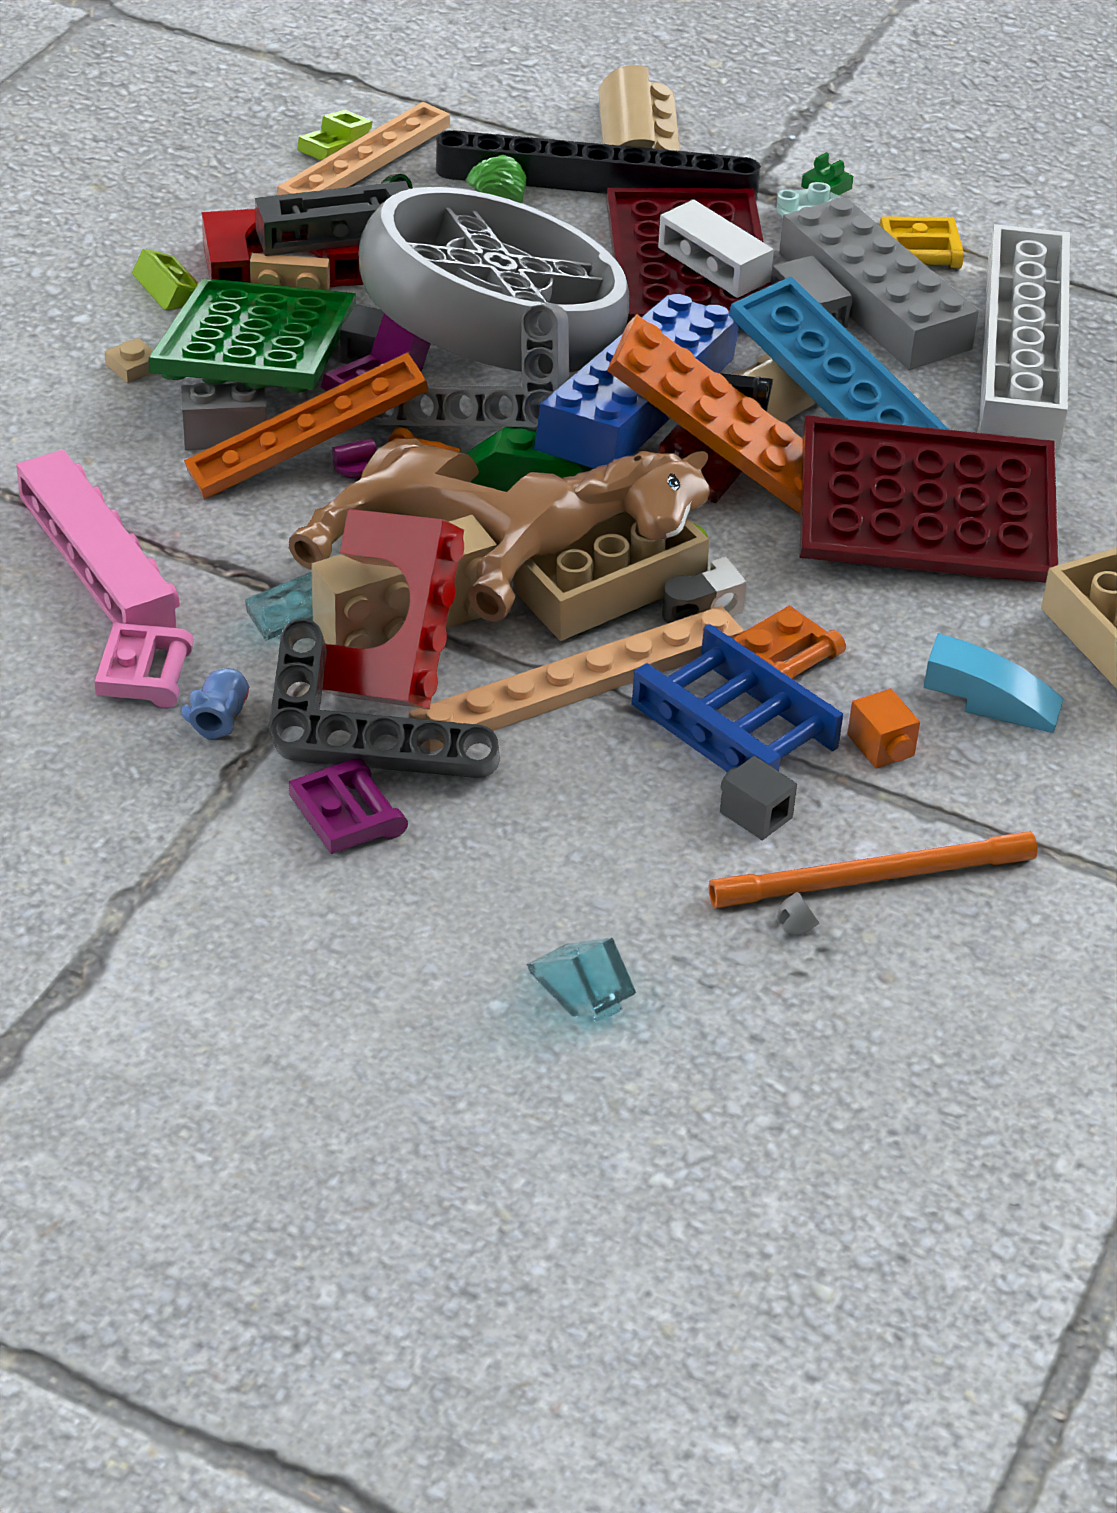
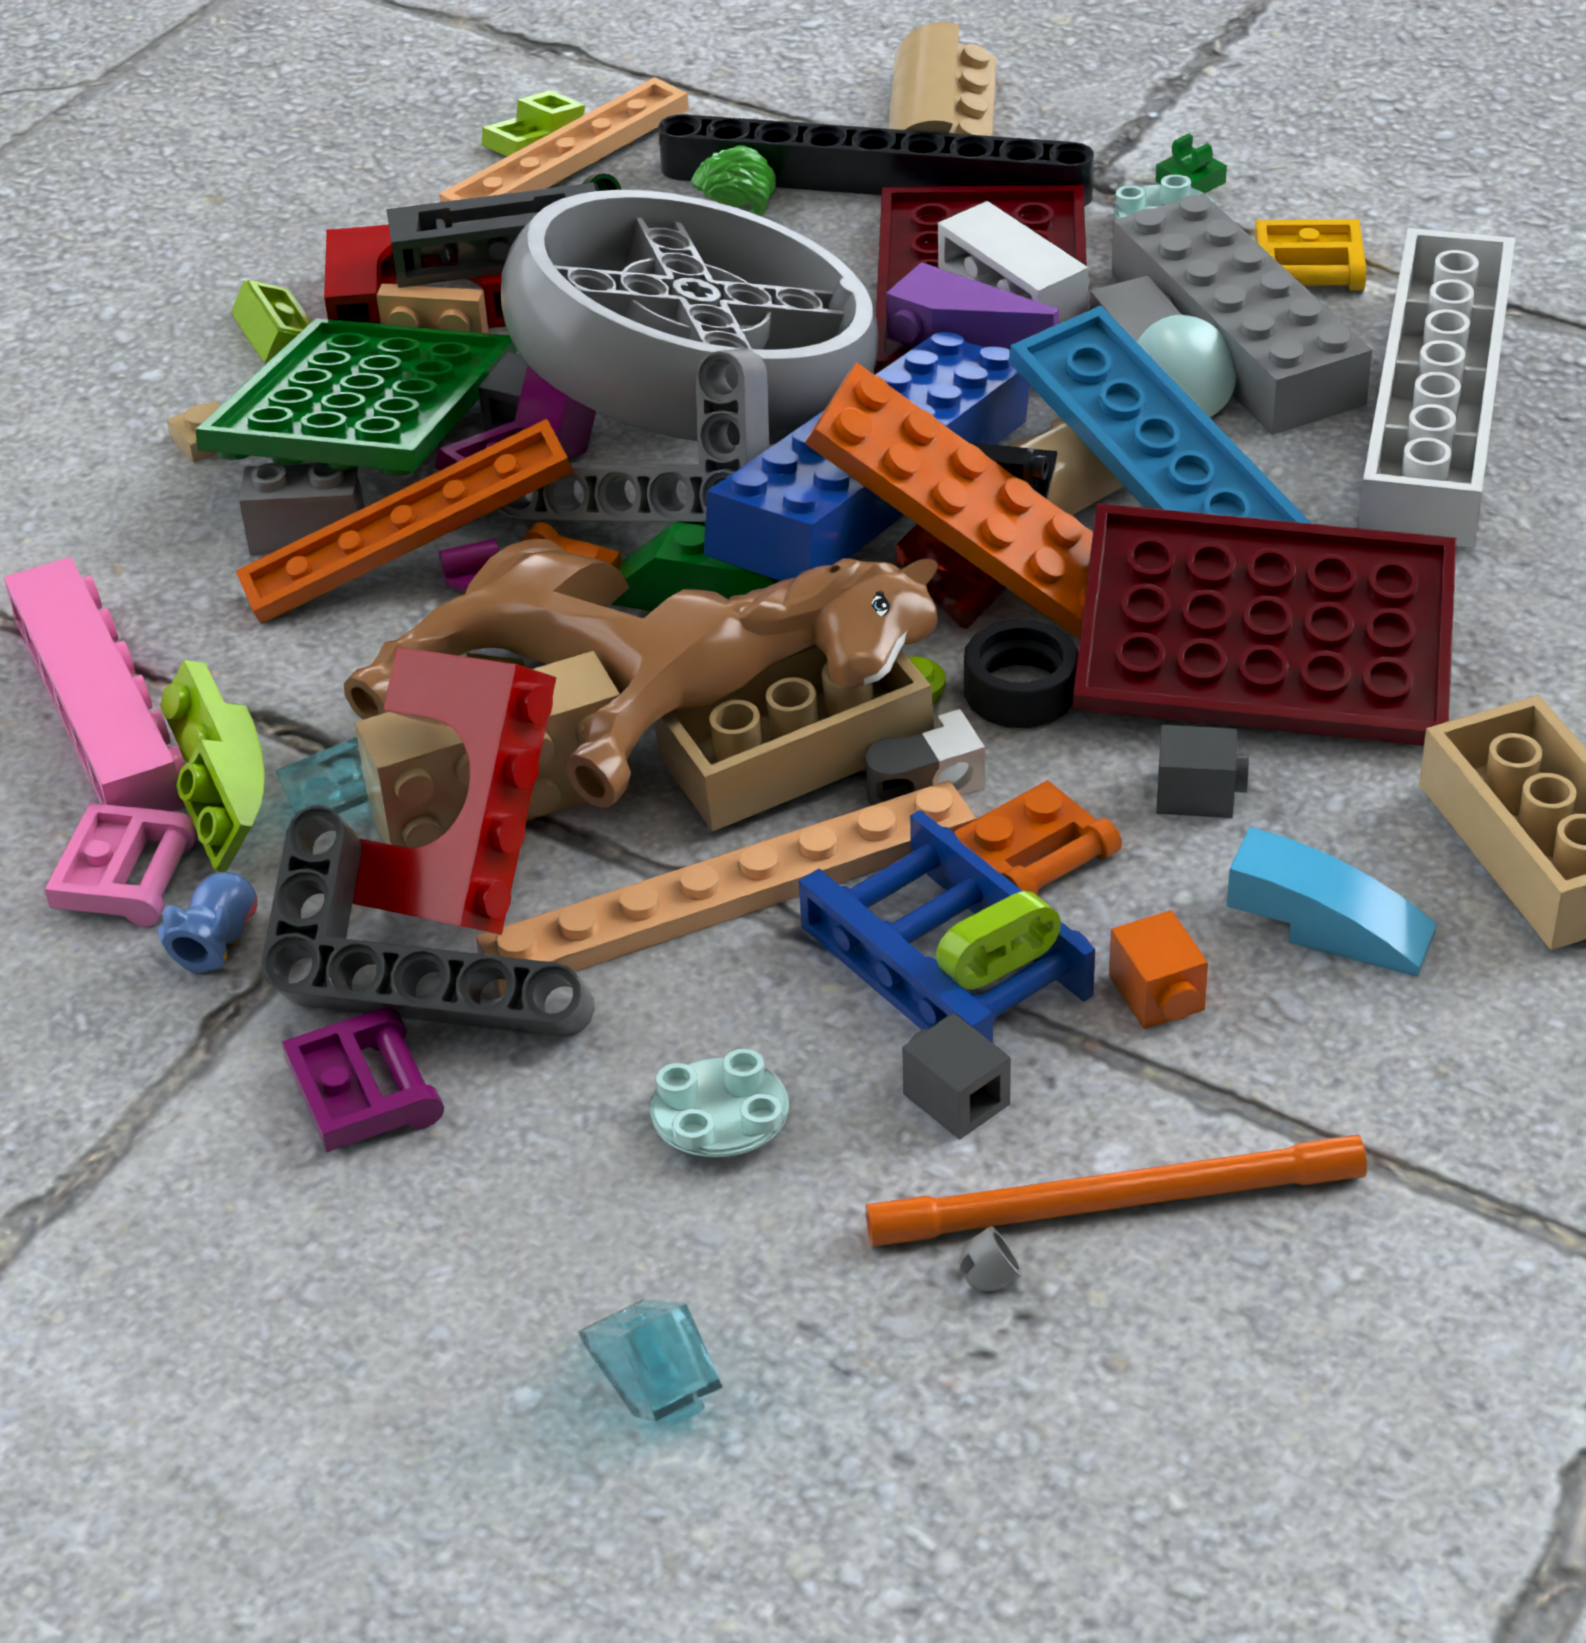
camera: 10 degrees right, 0 degrees up
(206, 593) = (223, 760): none -> lime slope
(598, 819) = (719, 1105): none -> light aqua dish
(669, 272) = (942, 301): none -> medium lavender slope
(760, 553) = (1020, 702): none -> black tyre
(779, 707) = (998, 940): none -> lime beam
(854, 311) = (1194, 358): none -> light aqua dish
(893, 598) = (1199, 771): none -> dark grey brick

